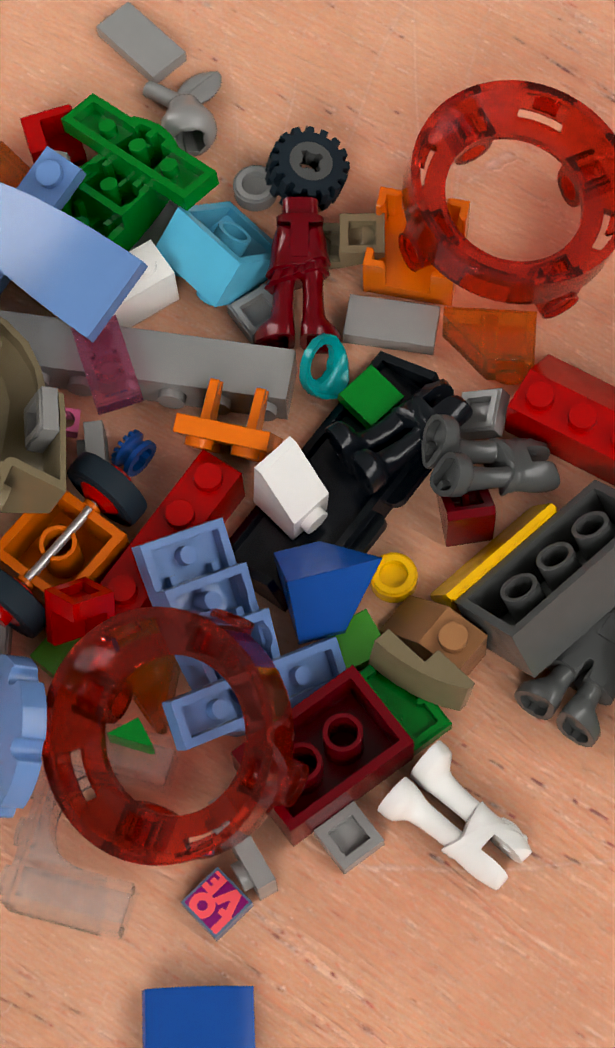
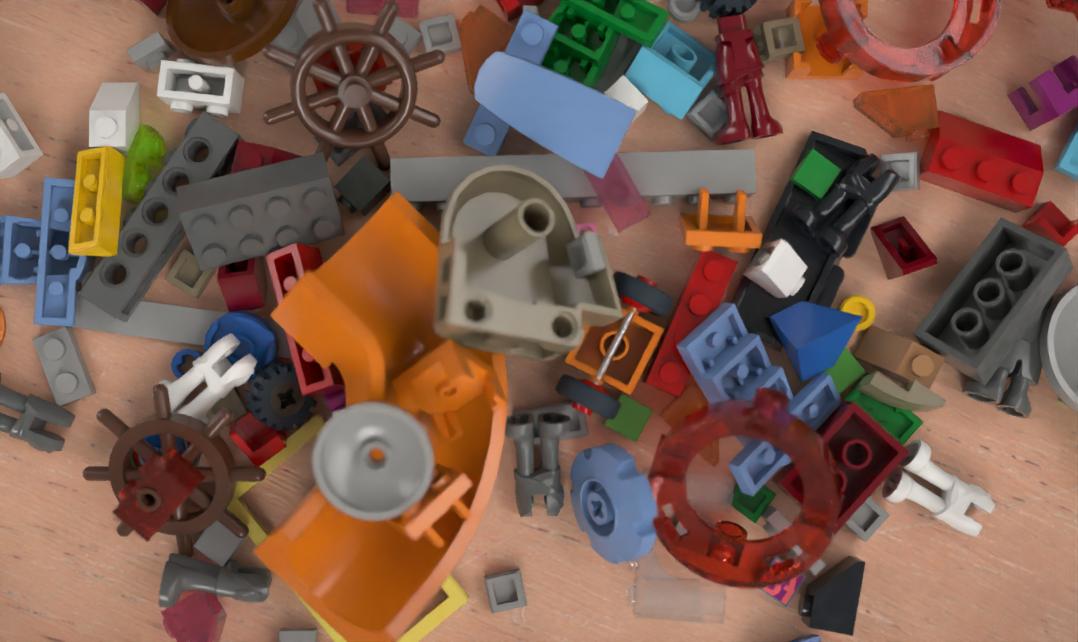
camera: 15 degrees left, 20 degrees up
(76, 609) = (648, 396): red panel -> none
(94, 440) = (616, 254): light grey plate -> none
(132, 736) = (706, 484): green piece -> none
(133, 453) = (645, 251): blue bush -> none
(199, 783) = (752, 506): none -> green tile
(281, 935) = (834, 598): none -> black slope
(335, 376) = (778, 159): teal piece -> none
(391, 324) = (815, 105): light grey tile -> none
(492, 554) = (929, 286): yellow slope -> none
(507, 463) = (929, 212): dark grey piece -> none

